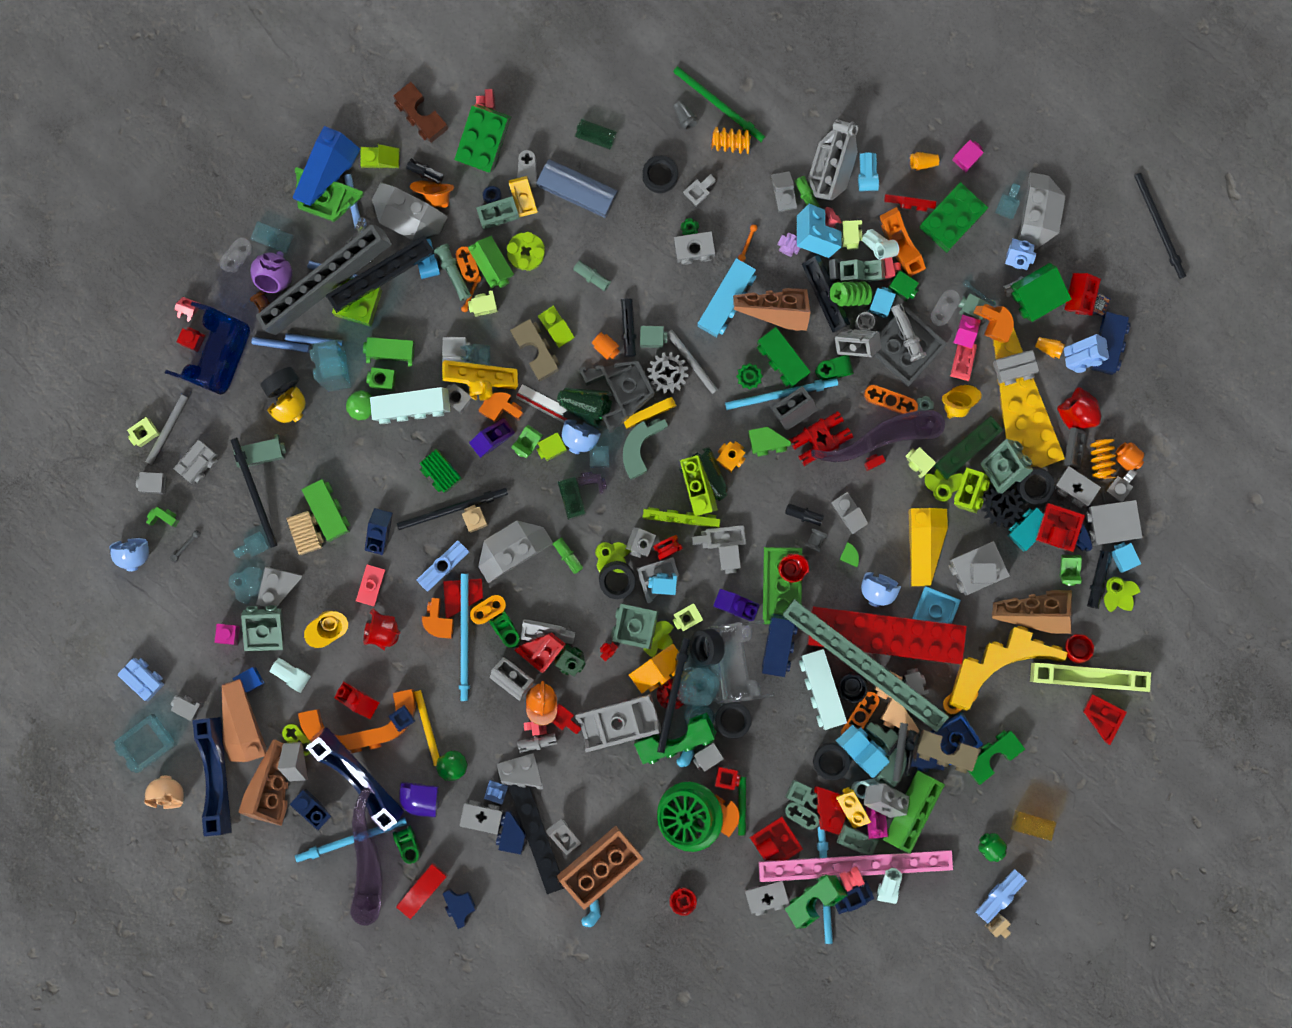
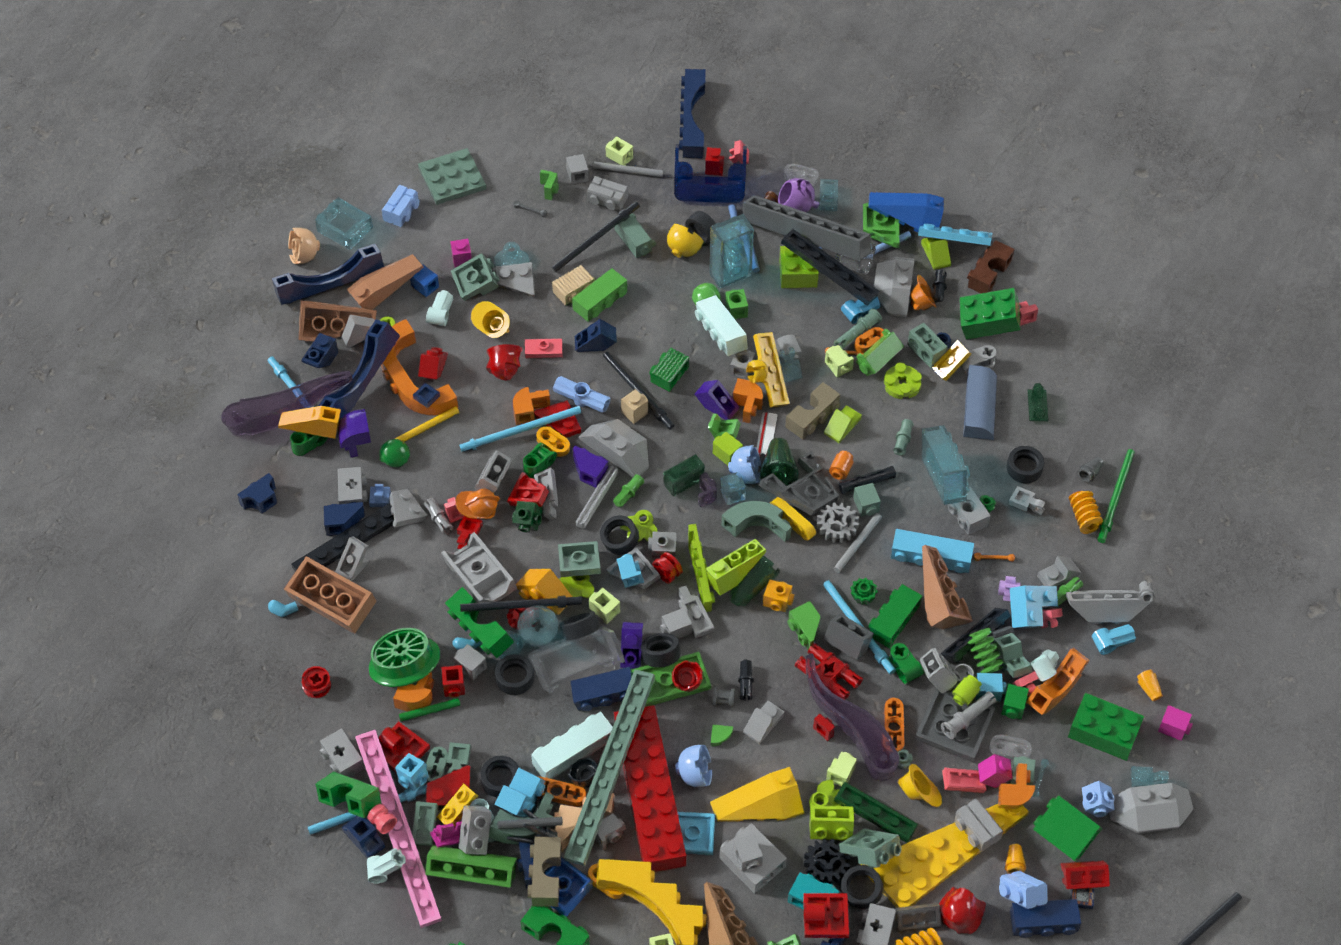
camera: 70 degrees right, 30 degrees down
(114, 614) = (452, 176): none -> sand green plate
(130, 554) = (508, 168): light blue cylinder -> none
(152, 350) = (693, 137): none -> dark blue arch
(186, 707) = (386, 243): light grey brick -> none
(254, 545) = (548, 255): clear light blue plate -> none
(377, 121) = (961, 235): none -> medium azure wing
(389, 350) = (765, 302): bright green brick -> none
(400, 840) = (314, 420): none -> light orange slope
(421, 891) = (268, 461): red slope -> none
(530, 584) = (589, 466): none -> dark purple slope
(564, 587) = (597, 497): none -> light grey axle
(608, 650) = (546, 547): red plate -> none
(649, 253) = (945, 465): none -> clear light blue brick
(740, 581) = (660, 658): none -> black tyre
(807, 846) = (412, 772): none -> medium azure brick
(851, 234) = (1045, 639): yellowish green brick -> none
(886, 326) = (966, 690): none -> lime brick
(908, 202) = (1100, 675): red wing -> none

